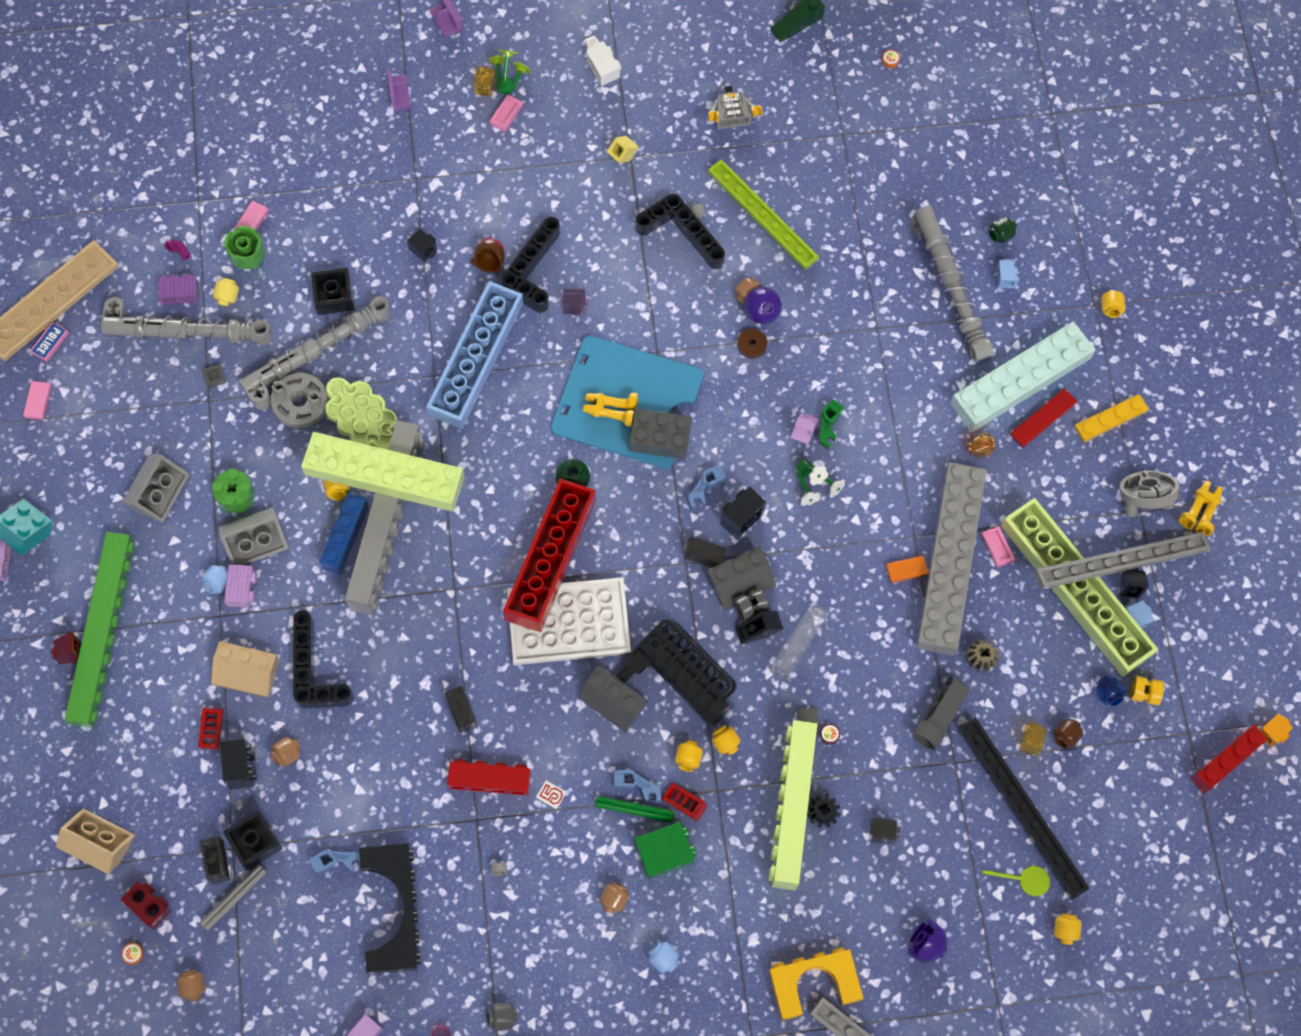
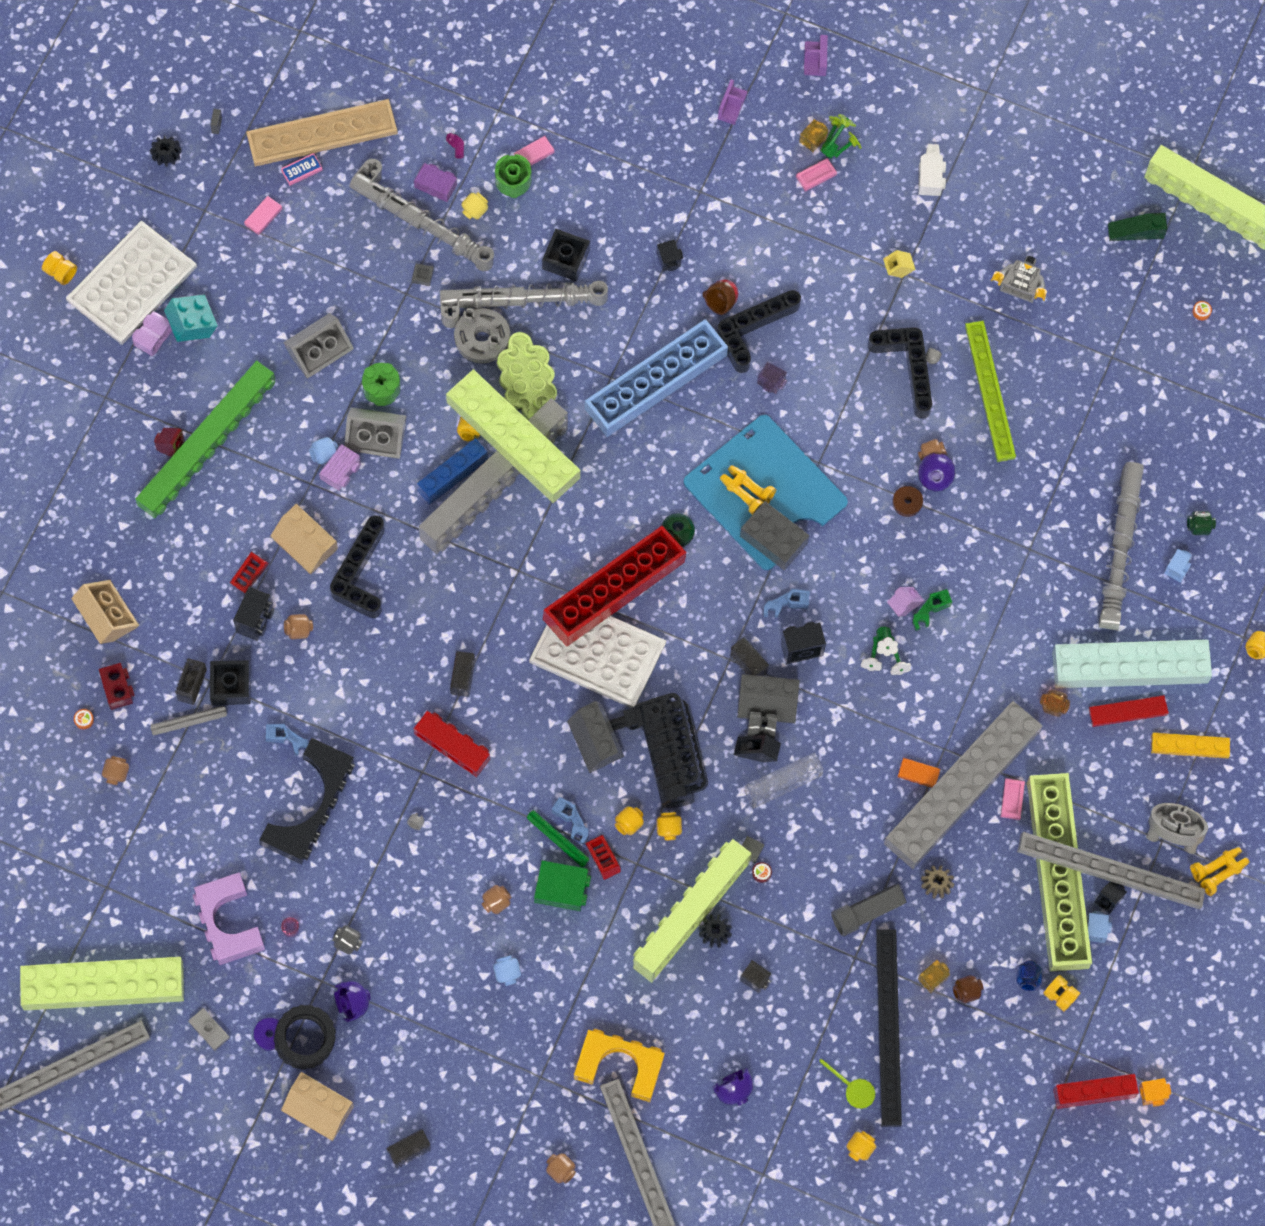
camera: 30 degrees right, 0 degrees up
(551, 794) = (496, 787): white sticker -> none

